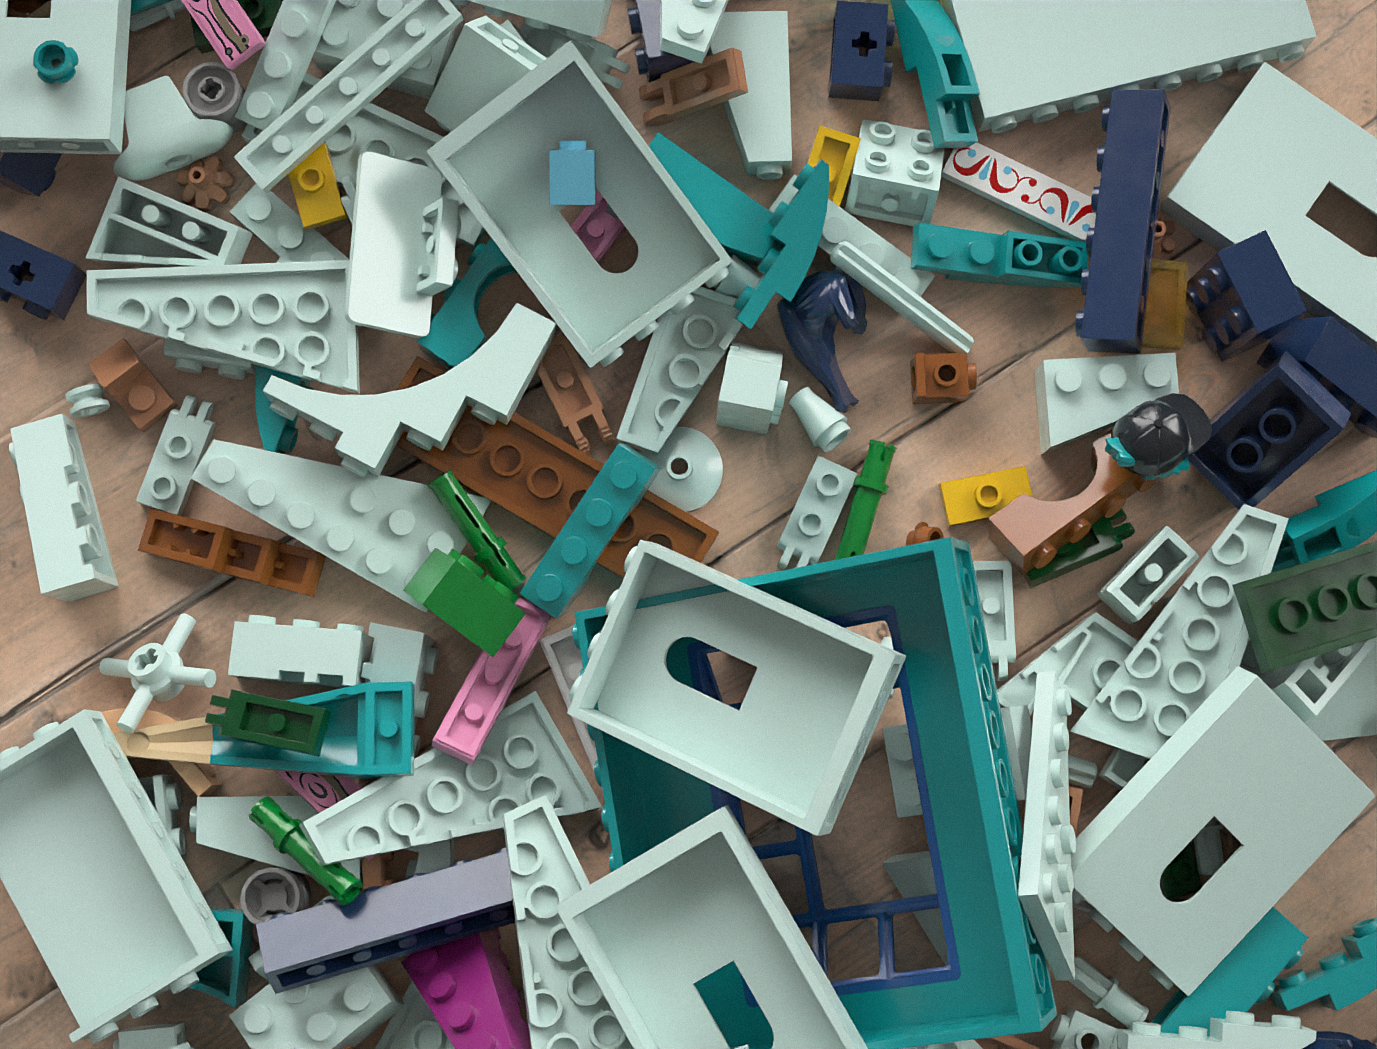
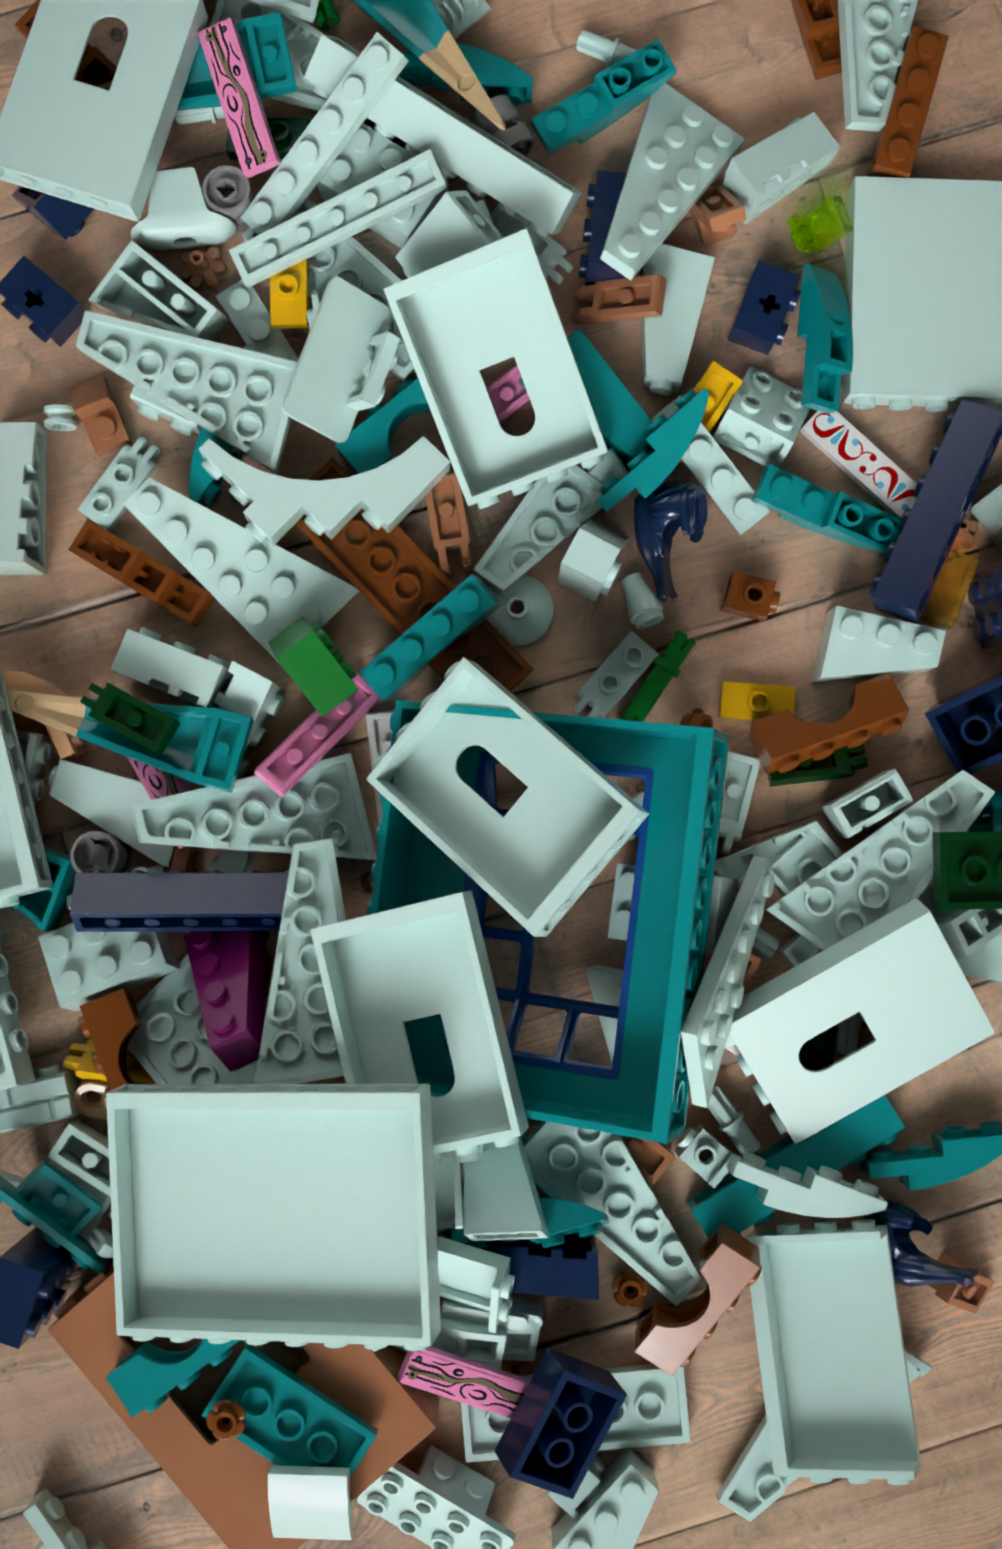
camera: 20 degrees right, 5 degrees up
(47, 53) = (98, 119): teal plate -> none
(157, 673) = (55, 652): light aqua bar -> none
(290, 839) = (120, 813): green pin -> none
(477, 532) = (340, 612): green pin -> none
(572, 174) = (498, 342): medium azure brick -> none
(901, 298) = (736, 522): light aqua axle -> none
(1159, 436) = (911, 695): black hair -> none

